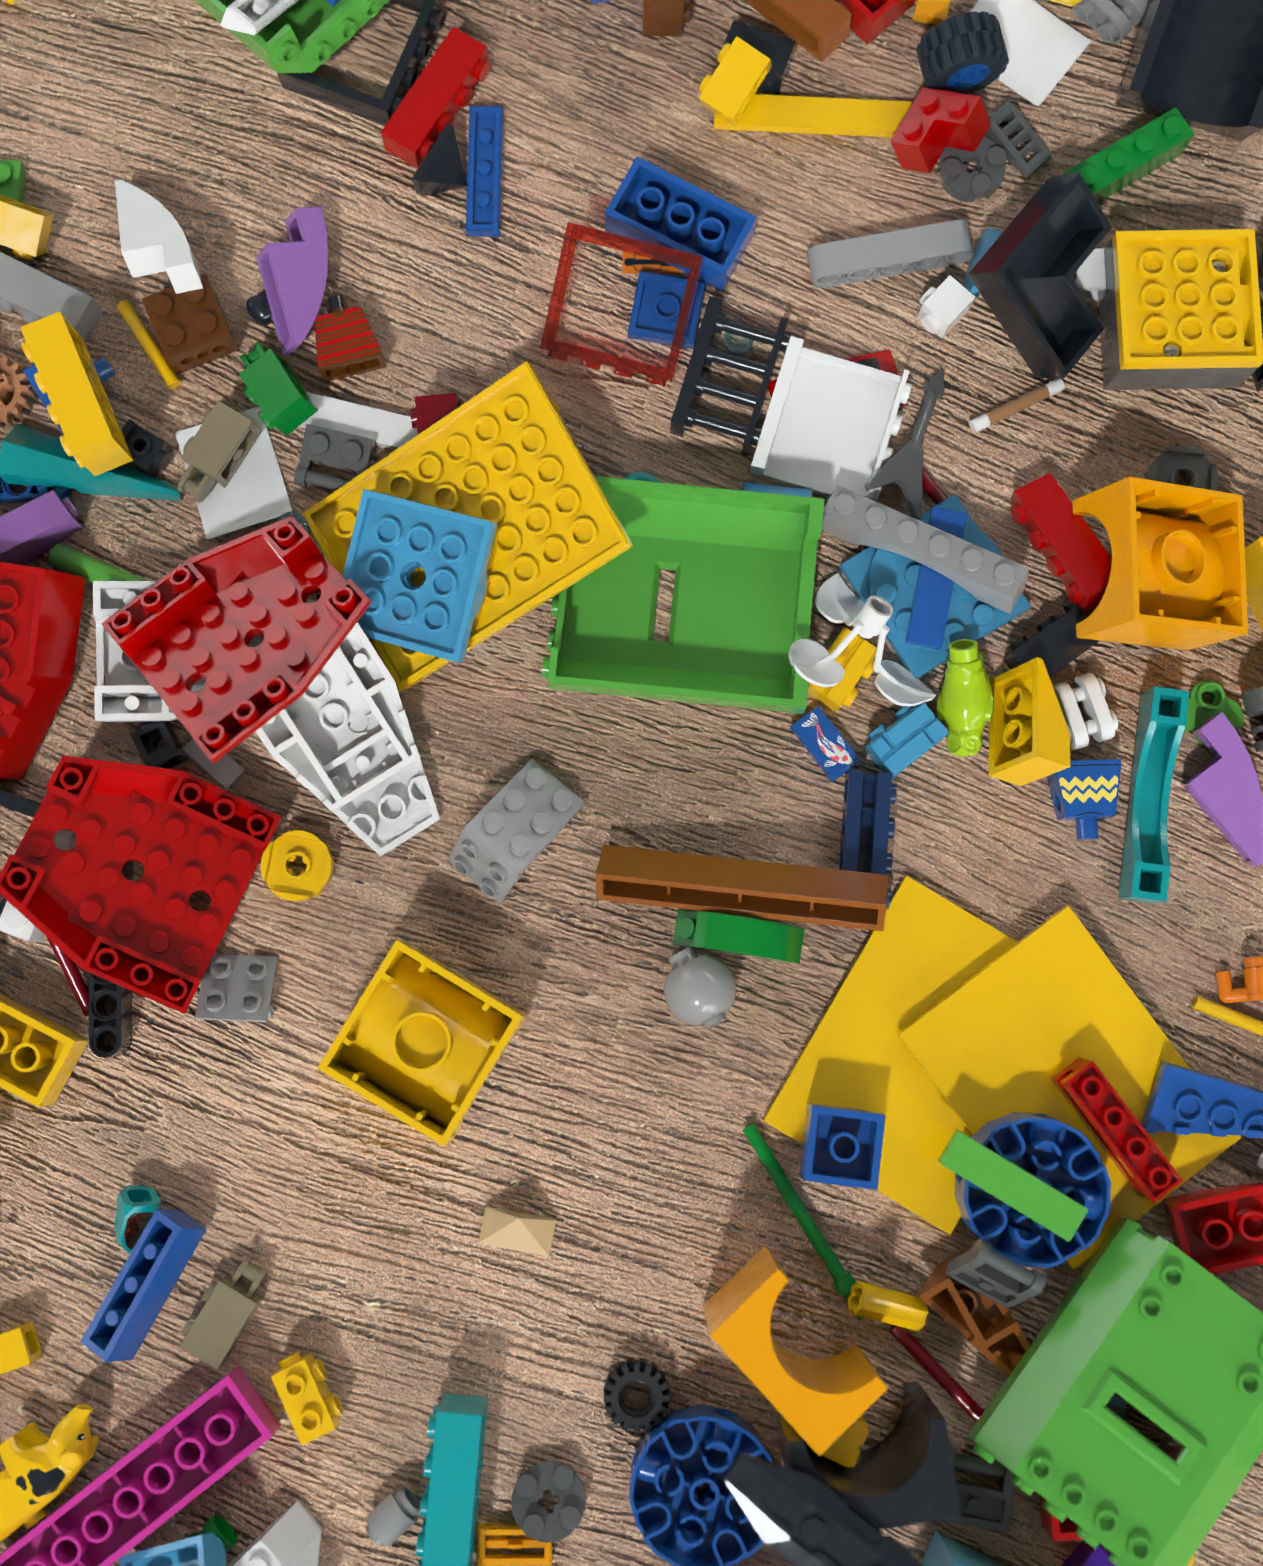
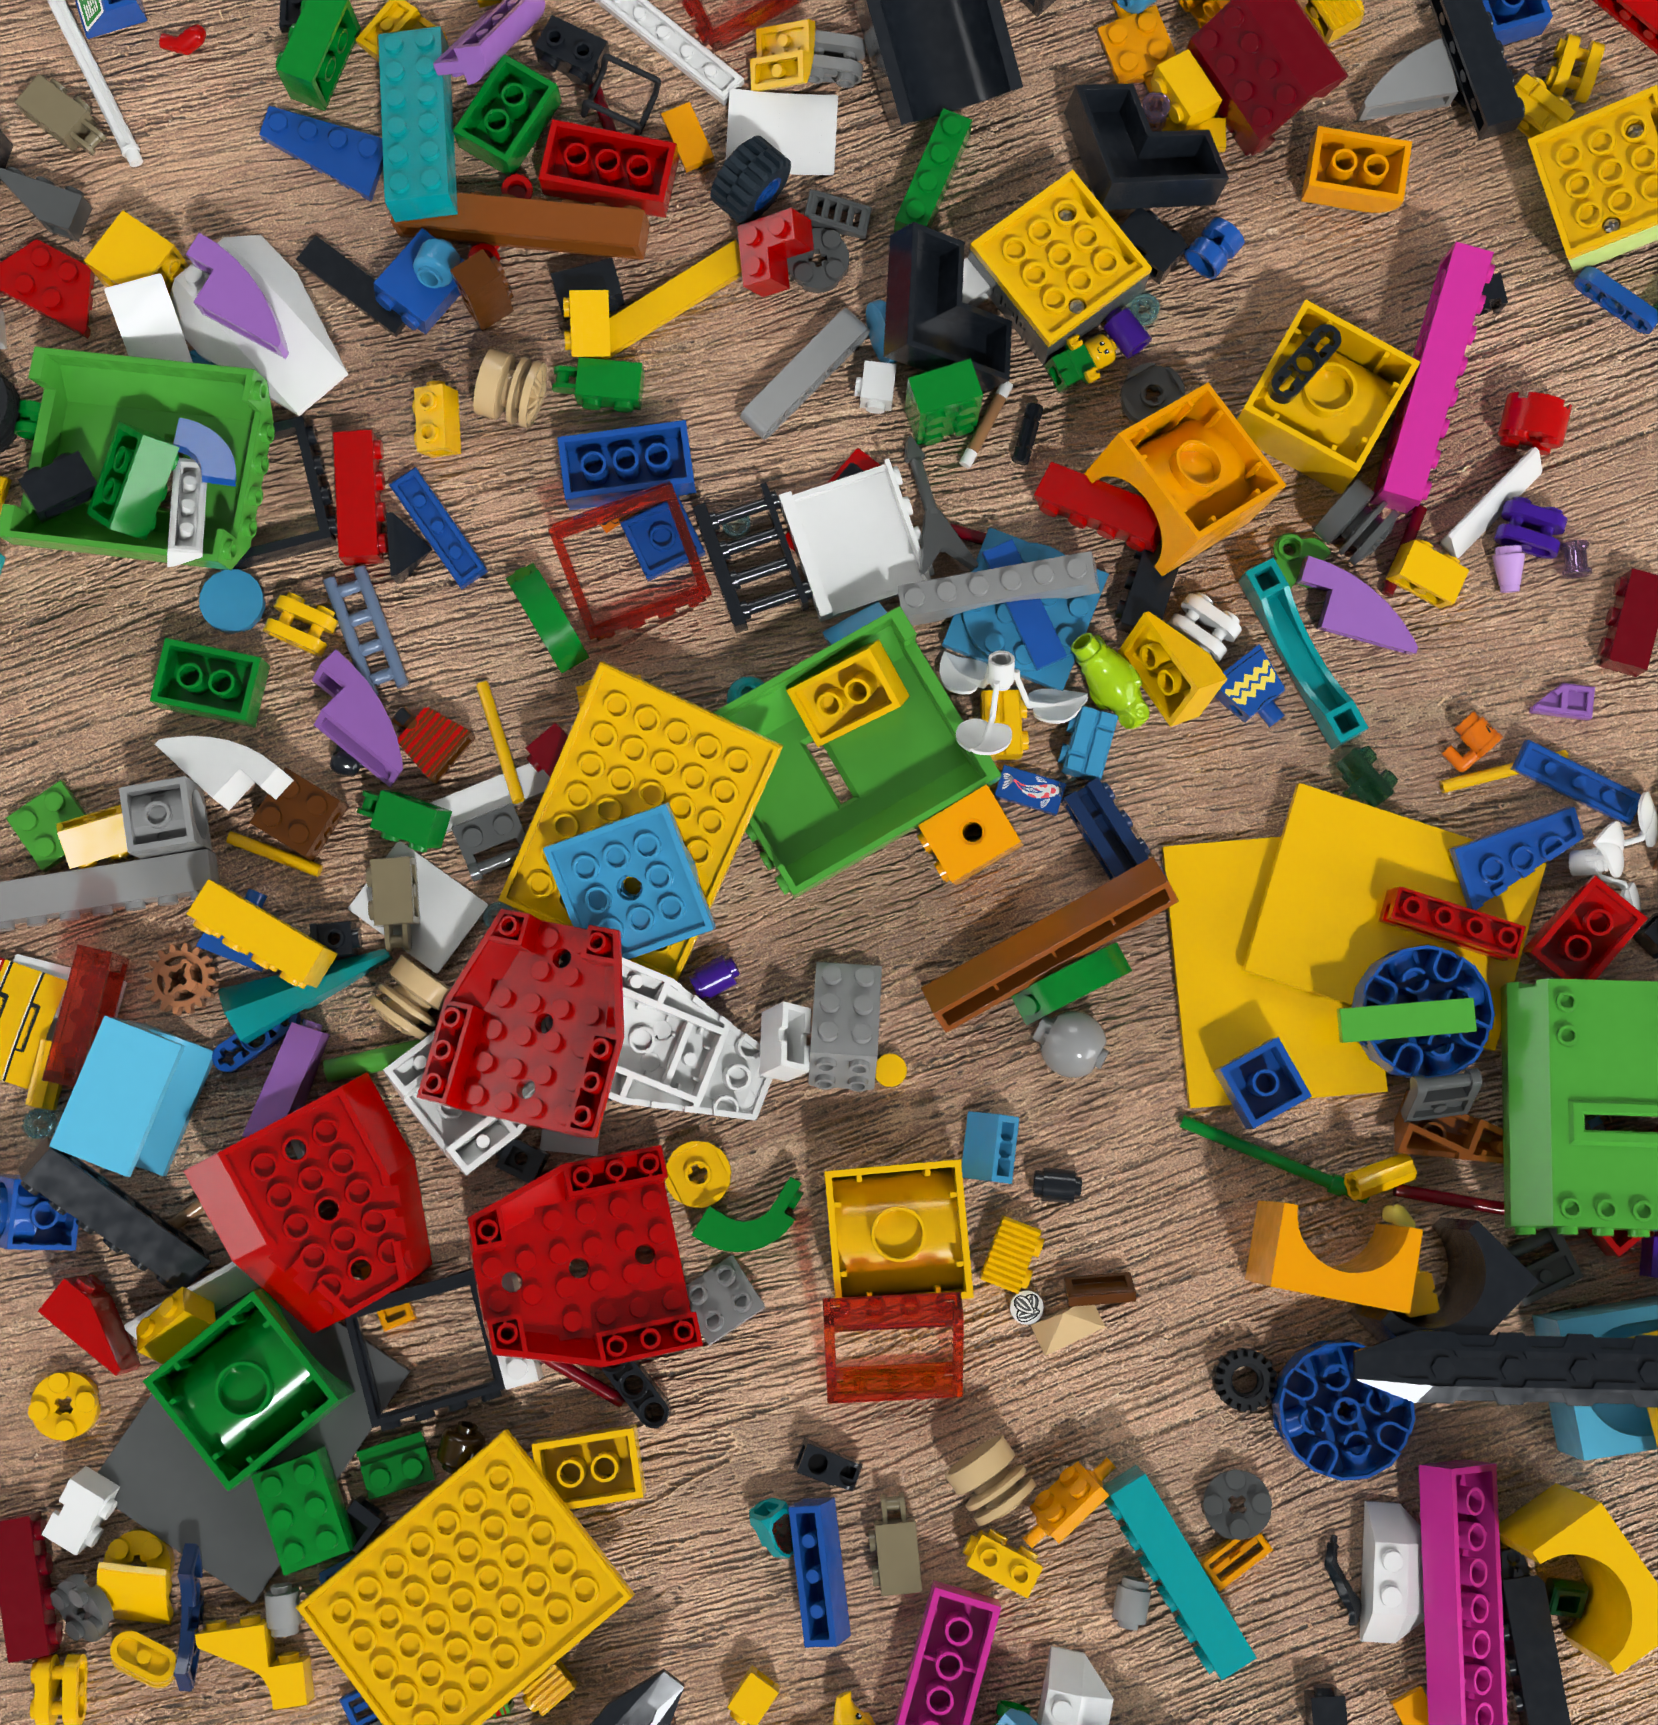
camera: 35 degrees left, 0 degrees up
(74, 245) = (165, 818): none -> light grey brick
(162, 543) = (411, 998): none -> tan wheel
(198, 163) = (210, 682): none -> green brick
(220, 1198) = (827, 1465): none -> black leg
(269, 113) = (232, 601): none -> dark azure tile
(286, 938) = (743, 1236): none -> green arch
(315, 152) = (292, 608): none -> yellow brick
(326, 1163) = (894, 1380): none -> clear red window
(347, 1323) = (994, 1485): none -> tan wheel
(377, 203) = (374, 614): none -> sand blue bar
(400, 1387) = (1068, 1501): none -> light orange plate
(402, 383) = (500, 742): none -> yellow piece
(435, 708) = (714, 977): none -> dark purple brick
(452, 805) = (784, 1041): none -> white brick
(493, 1188) = (1026, 1307): none -> tile
(512, 1133) = (1011, 1255): none -> yellow brick
(517, 305) = (547, 617): none -> green arch
(526, 897) = (890, 1070): none -> yellow tile
(548, 78) = (437, 420): none -> yellow brick
(563, 1026) = (990, 1147): none -> dark azure brick
(567, 1220) = (1099, 1289): none -> reddish brown tile
(596, 1102) = (1057, 1185): none -> black brick
(628, 90) = (504, 387): none -> tan wheel
(711, 144) = (603, 384): none -> green brick
(721, 730) = (947, 837): none -> light orange brick
(726, 546) = (848, 693): none -> yellow slope
(879, 1354) = (1398, 1216): none -> light yellow arm
(992, 354) = (943, 402): none -> green brick
(1047, 438) = (1027, 433): none -> black axle
(1129, 944) = (1364, 779): none -> clear green hips
(1139, 407) = (1081, 361): none -> piece
(1198, 410) = (1126, 332): none -> dark purple brick
(1223, 411) = (1145, 299): none -> clear light blue bush

